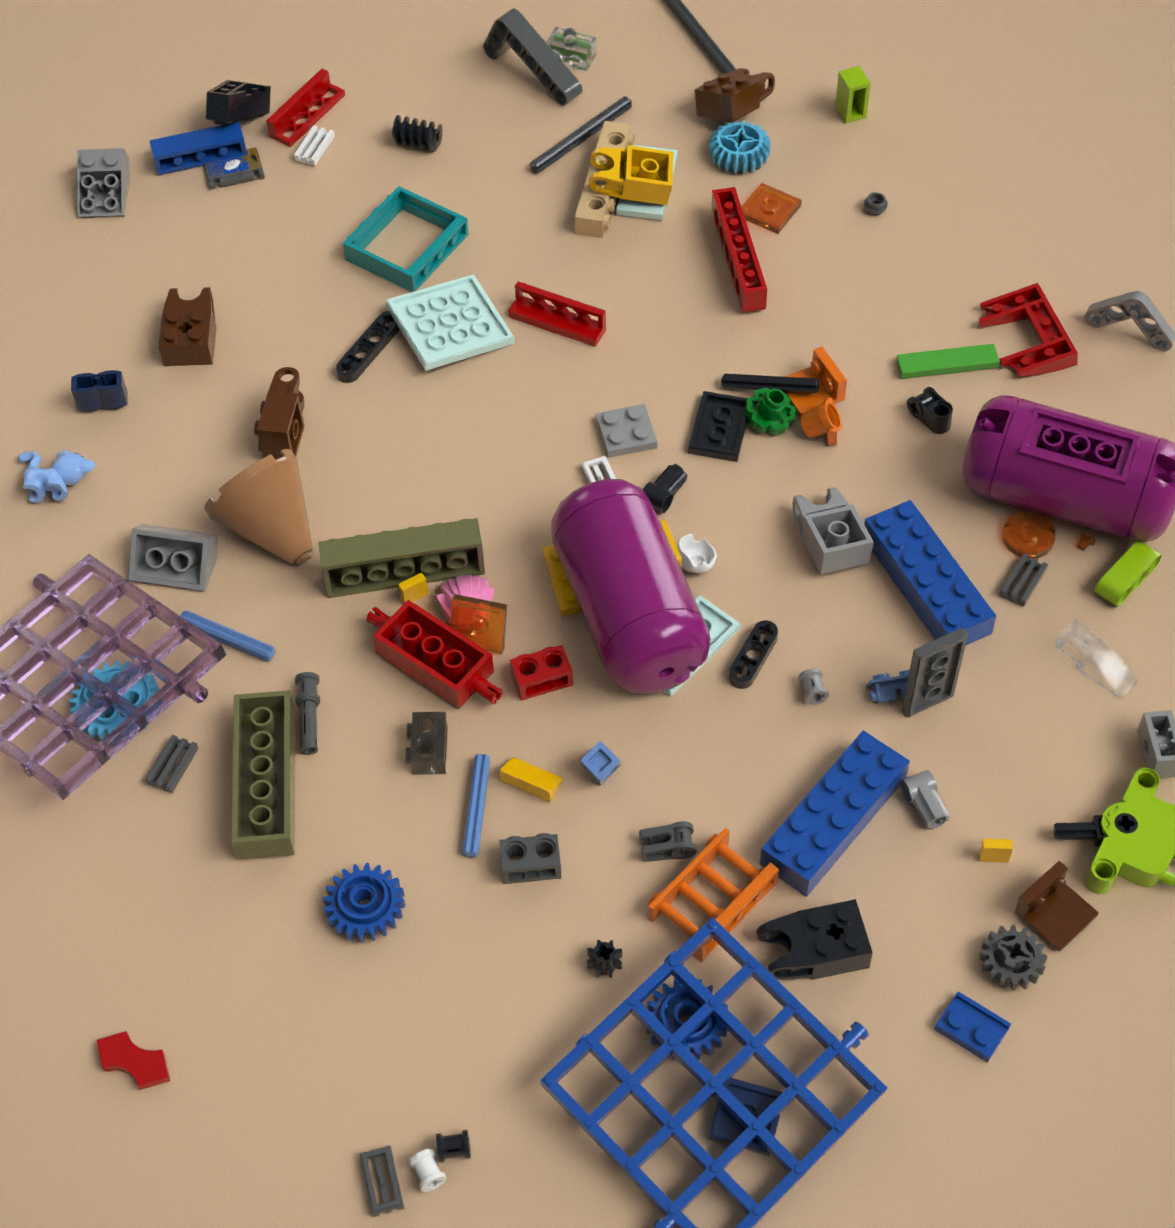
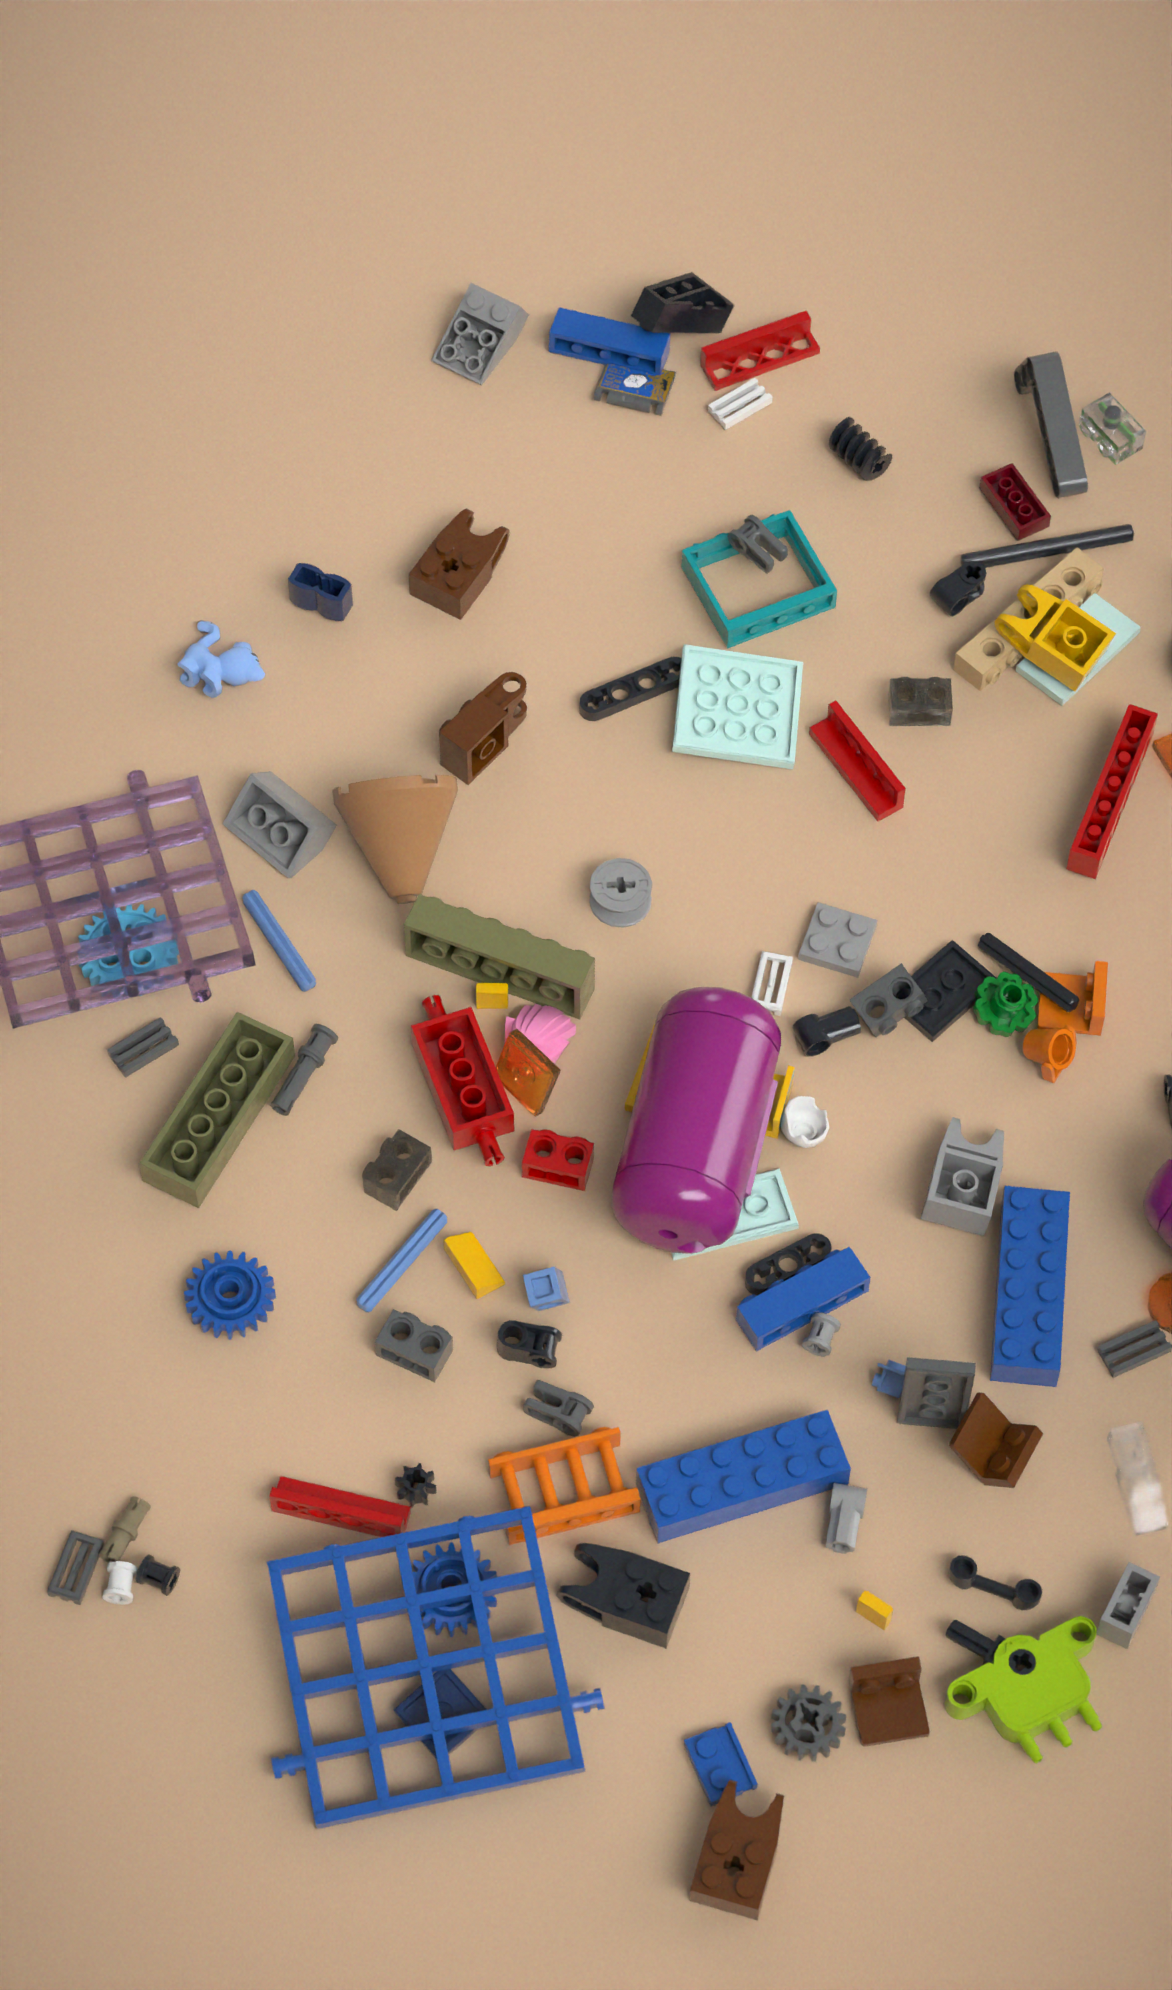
camera: 30 degrees right, 5 degrees up
(394, 213) = (753, 536): none -> dark grey piece
(402, 1128) = (124, 1530): none -> dark tan pin
(456, 475) = (620, 892): none -> light grey piece
(541, 117) = (1015, 501): none -> dark red piece
(545, 181) = (959, 587): none -> black piece
(559, 1010) = (339, 1508): none -> red fence
(571, 259) = (920, 708): none -> clear smoke brick
(618, 808) = (531, 1343): none -> black piece
(689, 445) = (883, 994): none -> dark grey brick
(781, 670) = (793, 1302): none -> blue brick
(993, 692) = (992, 1444): none -> reddish brown bracket
(1037, 1073) = (740, 1843): none -> reddish brown brick
(1085, 782) = (1023, 1597): none -> black bar

